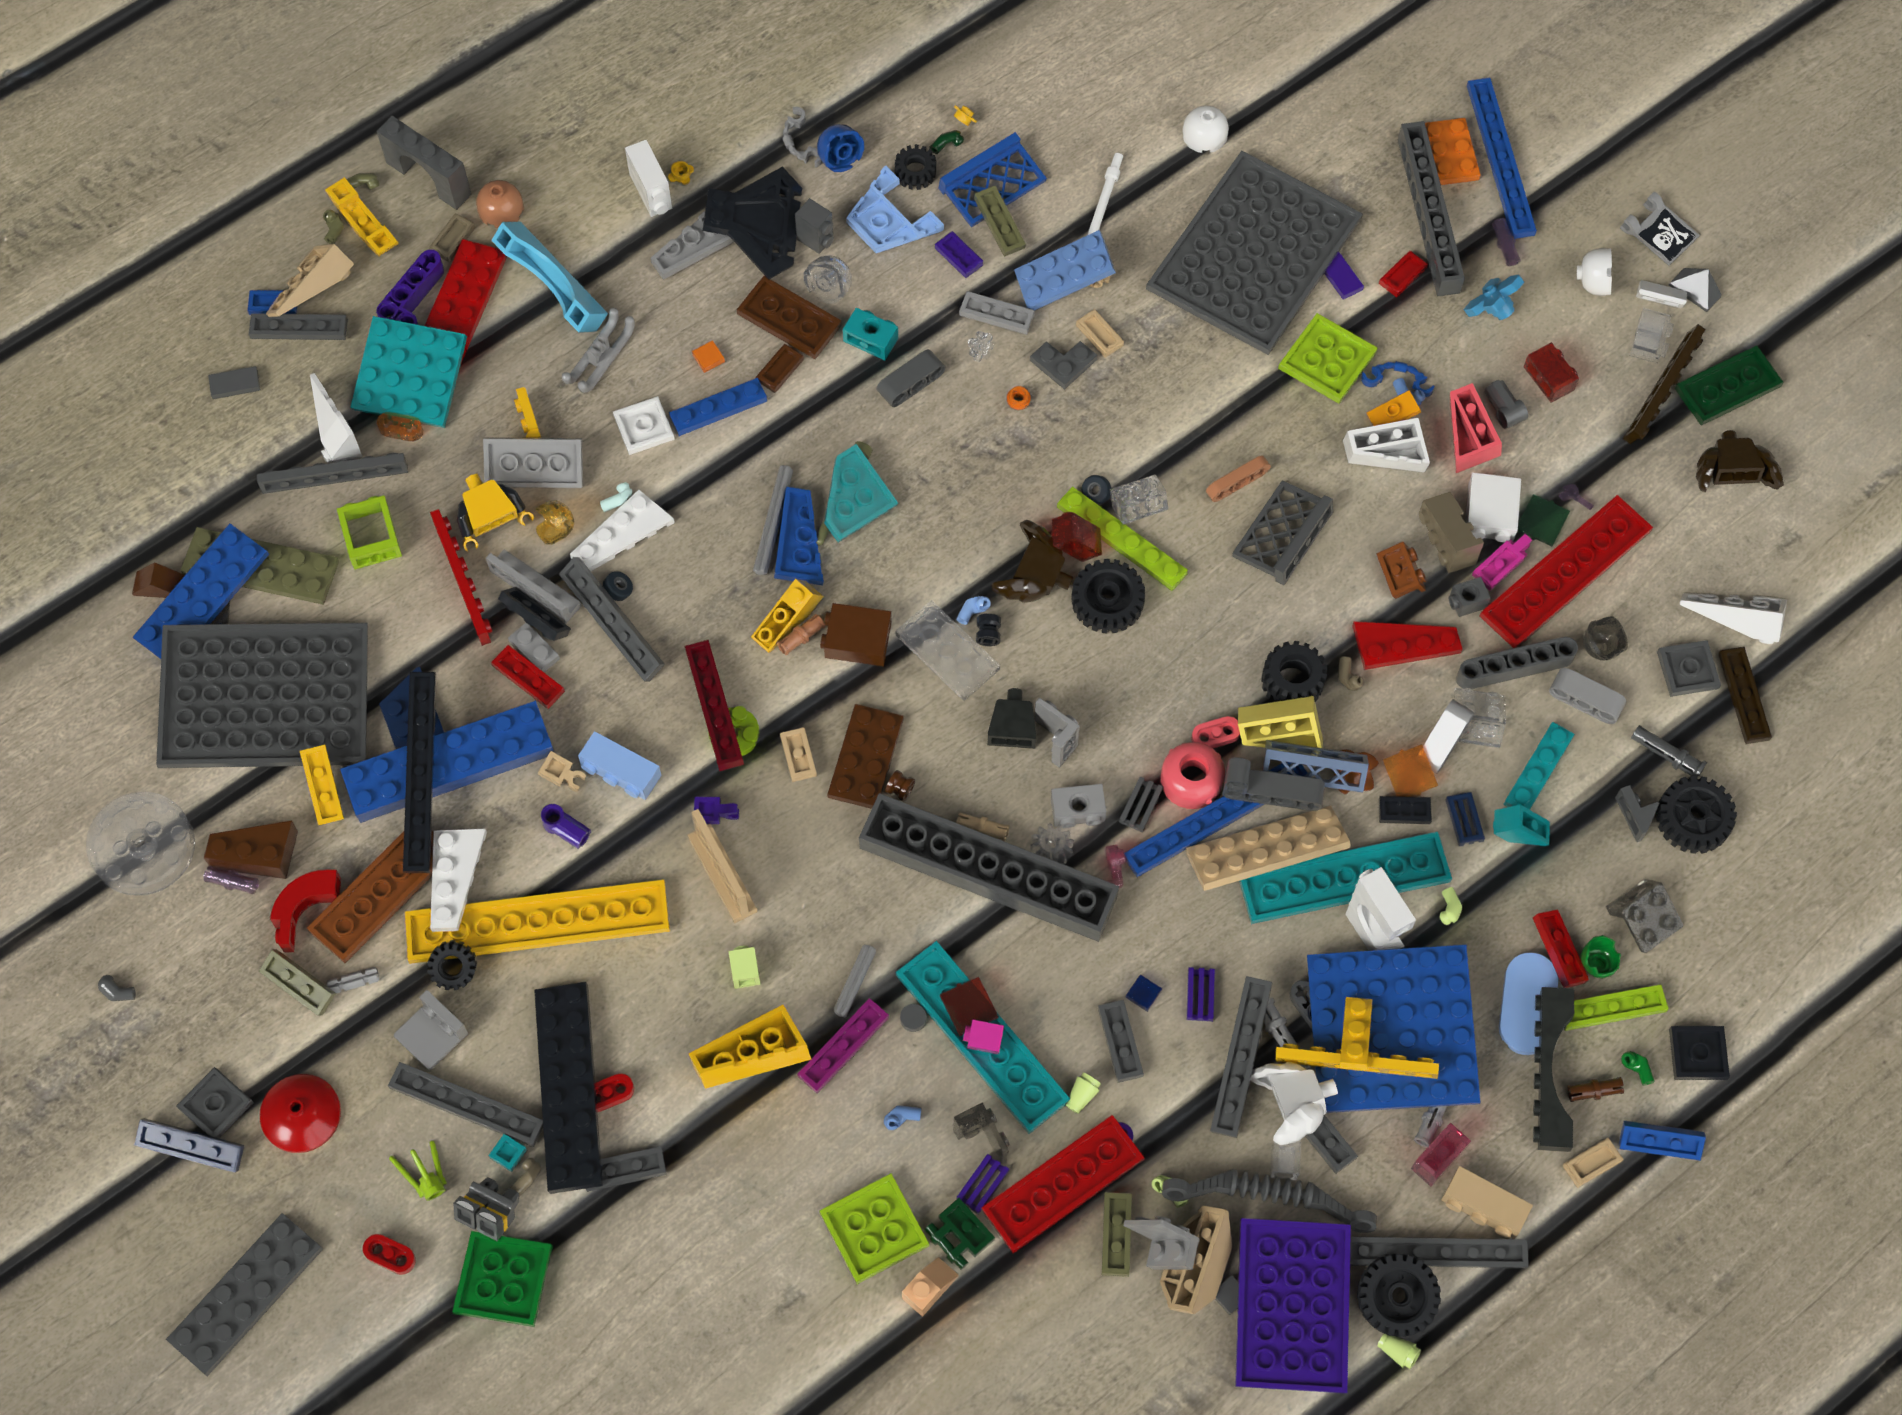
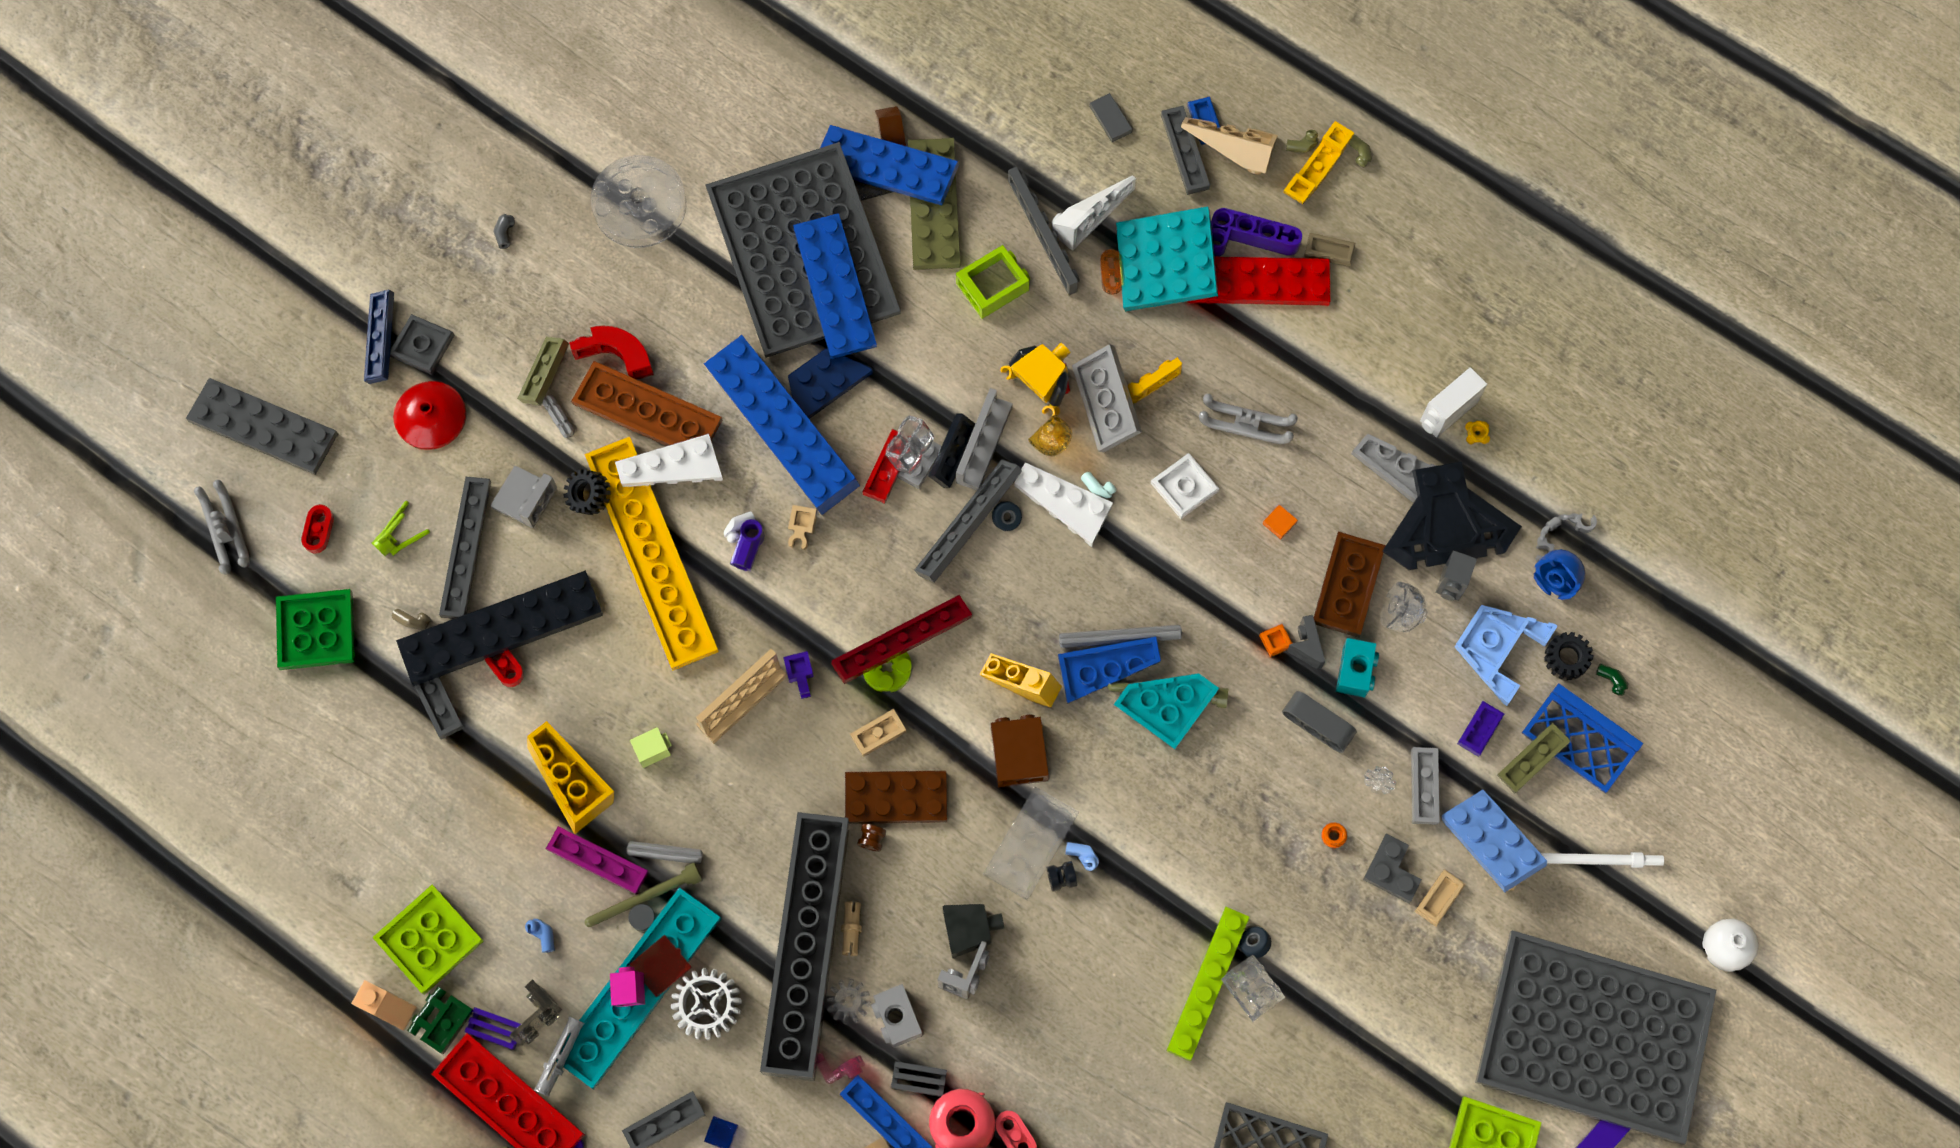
camera: 75 degrees right, 5 degrees up
(231, 880) = (624, 285): clear purple pin -> none
(254, 850) = (654, 295): reddish brown wedge -> none
(317, 673) = (834, 286): none -> blue plate
(322, 785) = (729, 326): yellow plate -> none
(351, 1357) = (223, 528): none -> light grey piece
(405, 147) = (1393, 195): dark grey arch -> none
(419, 772) = (755, 401): black tile -> none
(465, 584) = (978, 369): red plate -> none
(486, 1208) = (368, 595): dark grey hips -> none
(499, 203) = (1380, 279): nougat cylinder -> none
(507, 1152) = (428, 596): teal plate -> none
(518, 643) = (909, 445): none -> clear brick
(536, 832) = (734, 526): none -> white arm
(577, 304) = (1336, 314): medium azure arch -> none
(619, 766) = (820, 574): light blue brick -> none
(718, 407) = (1228, 548): blue plate -> none
(780, 368) = (1290, 593): reddish brown tile -> none
(801, 634) = (1004, 698): nougat pin -> none
(821, 392) = (1275, 640): none -> orange tile
(840, 363) = (1309, 649): none -> dark grey slope
(885, 961) = (688, 876): none -> olive piece
(964, 115) = (1649, 687): yellow plate -> none
(1033, 1121) = (545, 1086): none -> light grey pin
(1035, 963) = (697, 1012): none -> white gear
(1038, 568) = (1143, 906): dark brown torso -> none
(1076, 536) = (1186, 934): clear red brick -> none
(1083, 1092) = (605, 1100): yellowish green cone -> none
(1108, 579) = (1132, 1006): black wheel -> none
(1238, 478) = (1313, 1086): nougat beam -> none

